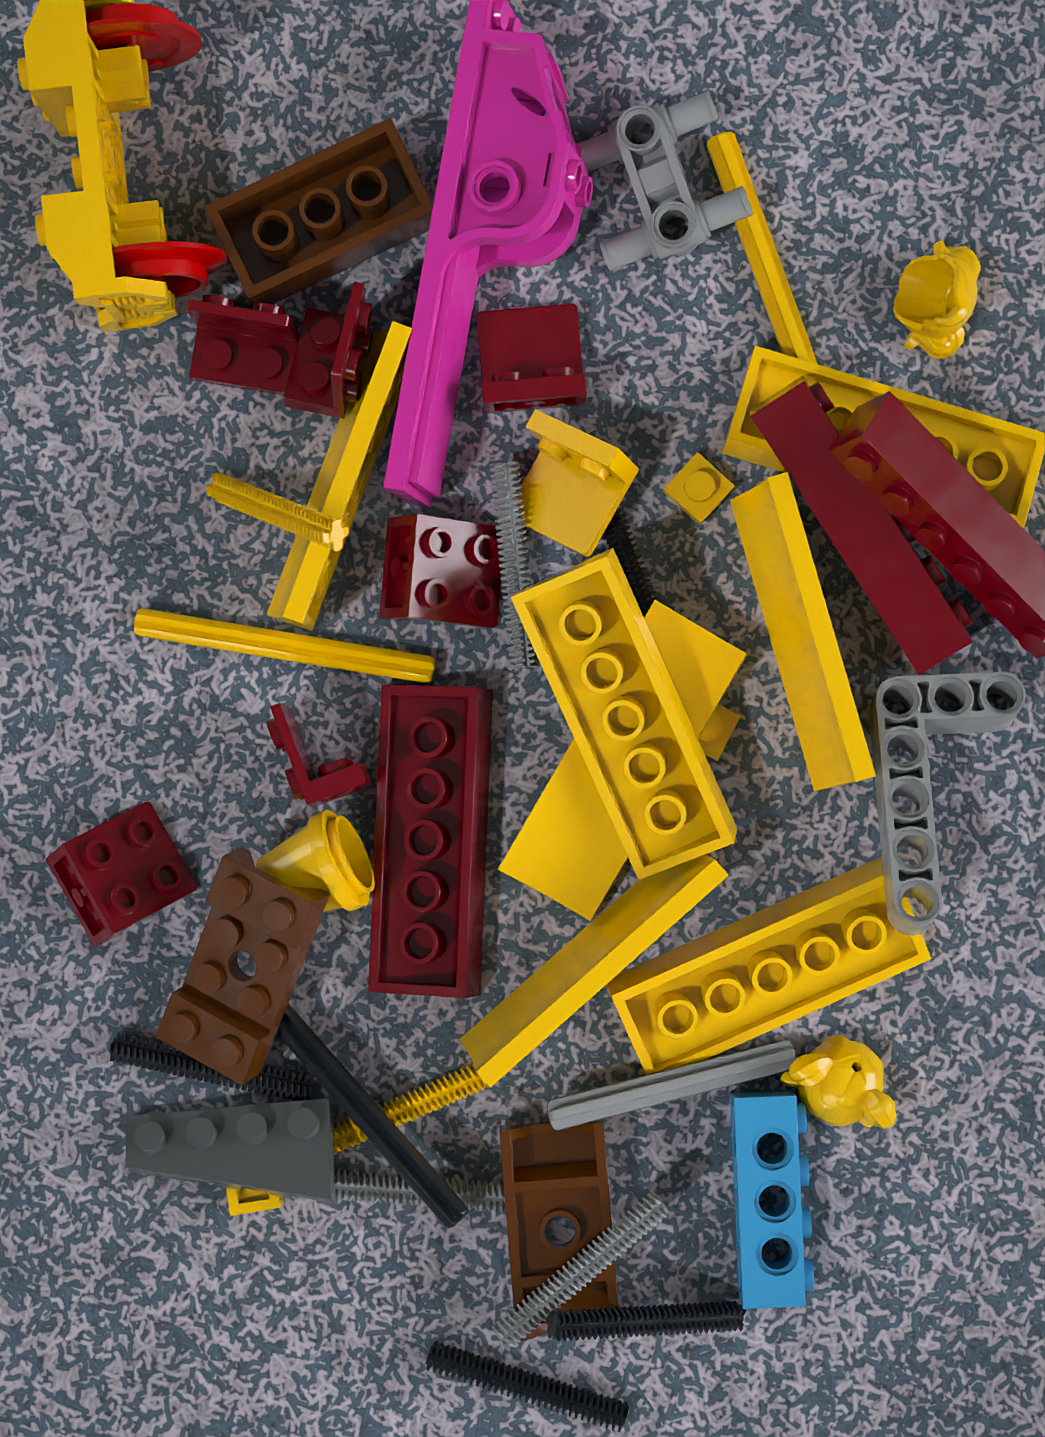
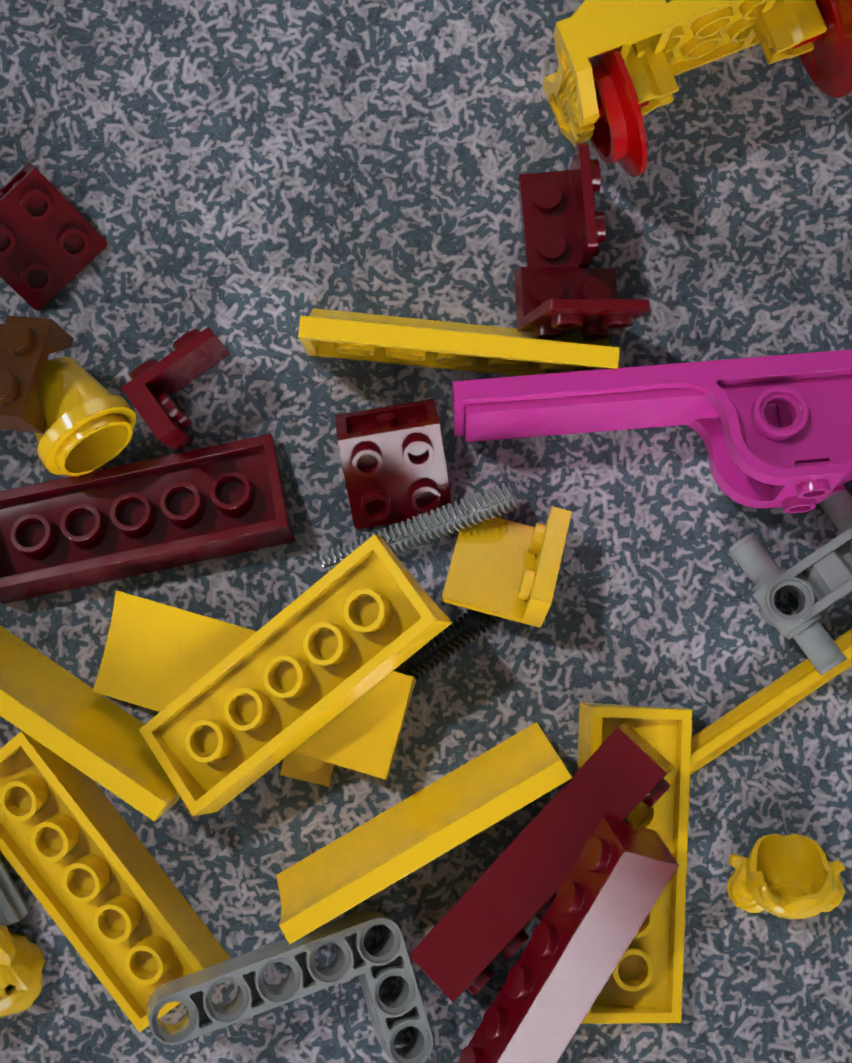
camera: 75 degrees right, 0 degrees up
(278, 511) = (404, 288): yellow axle -> none
(284, 645) = (285, 332): yellow axle -> none
(322, 214) = (707, 255): reddish brown brick -> none
(531, 358) = (622, 495): dark red bracket -> none
(698, 488) = (539, 689): yellow plate -> none

